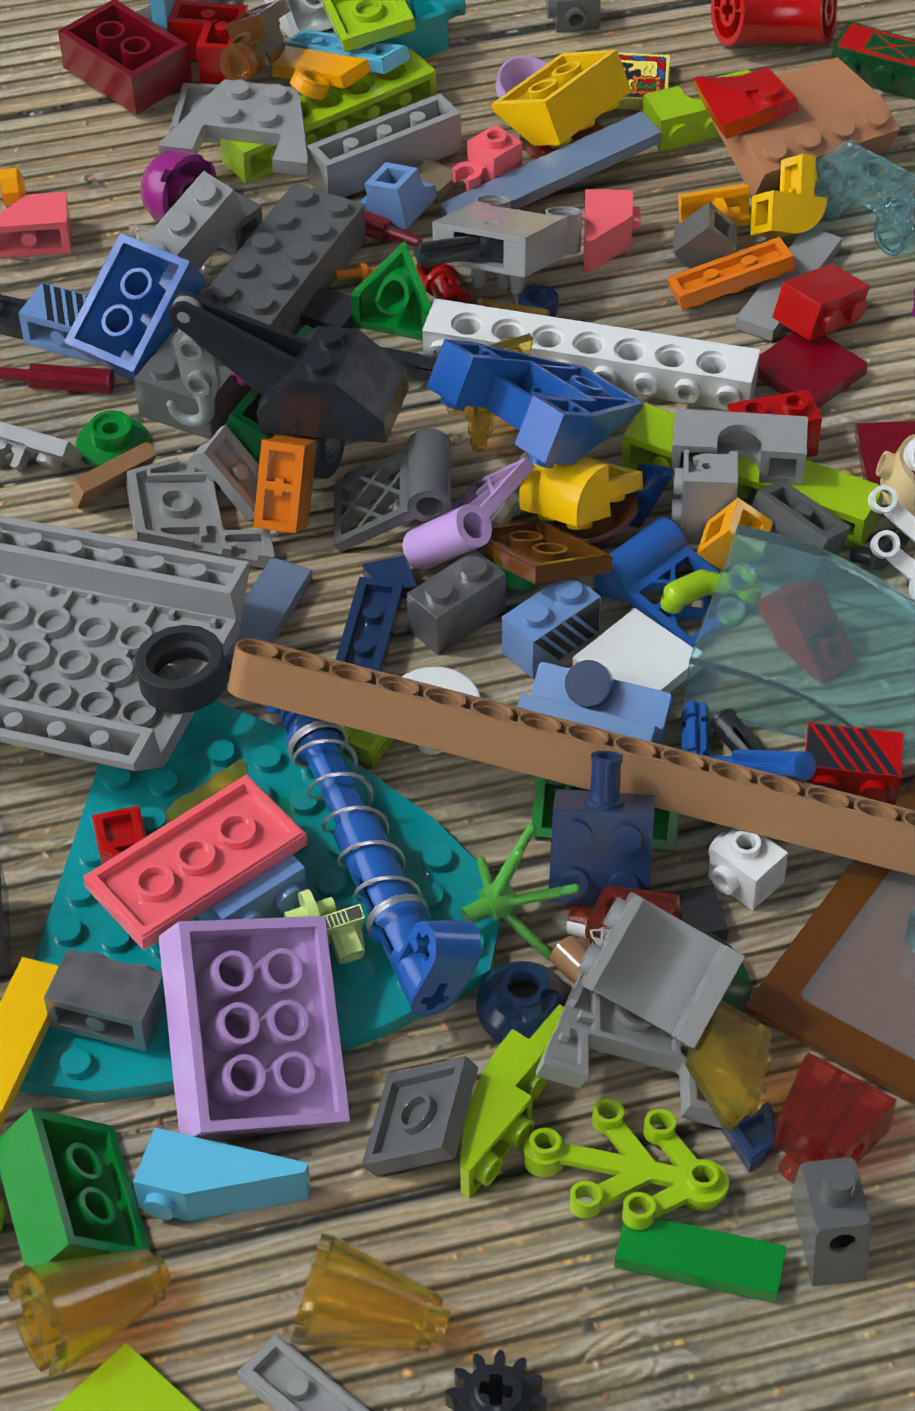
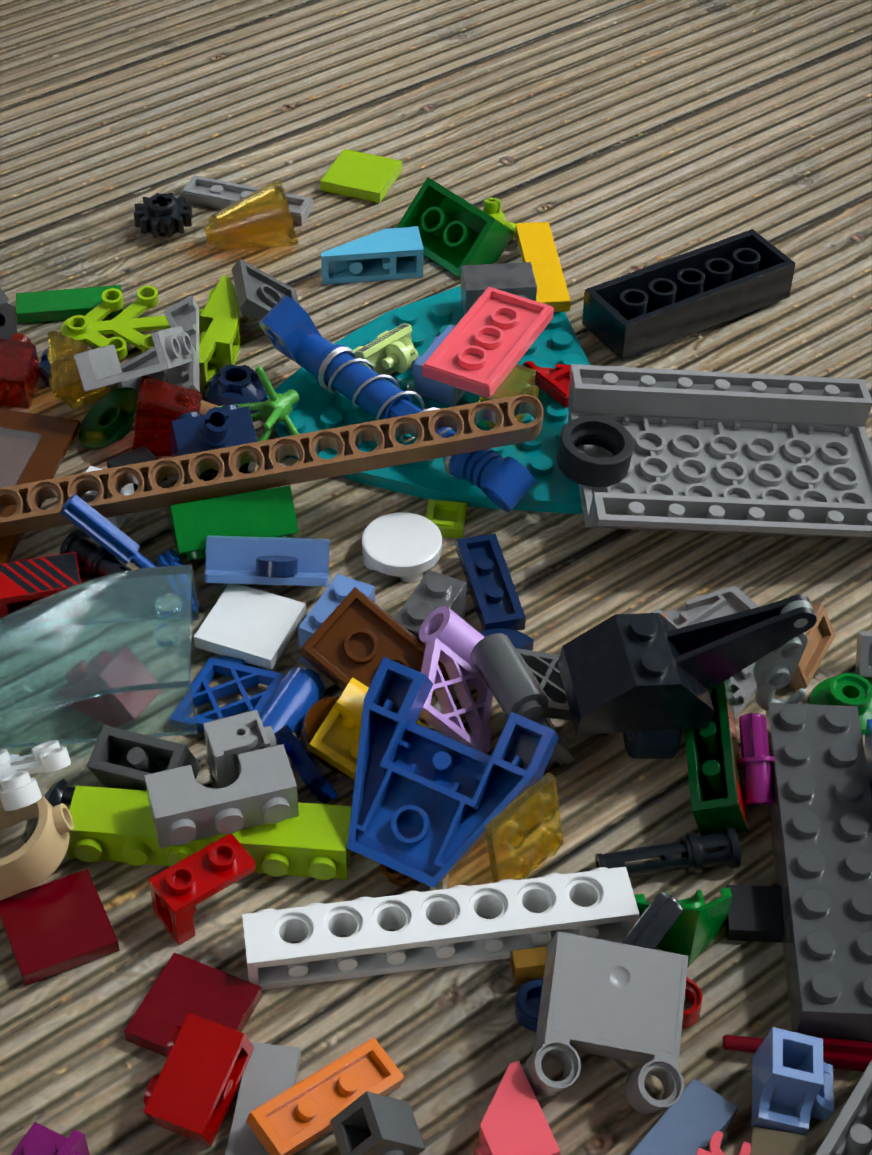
camera: 155 degrees right, 5 degrees down
(83, 1303) = (404, 180): clear yellow cone -> none
(252, 1026) = (401, 288): lavender slope -> none
(272, 601) = (588, 582): sand blue tile -> none
(361, 272) = (757, 979): orange hand -> none
(687, 590) = (230, 672): lime arm -> none
(722, 527) = (185, 724): light orange brick -> none

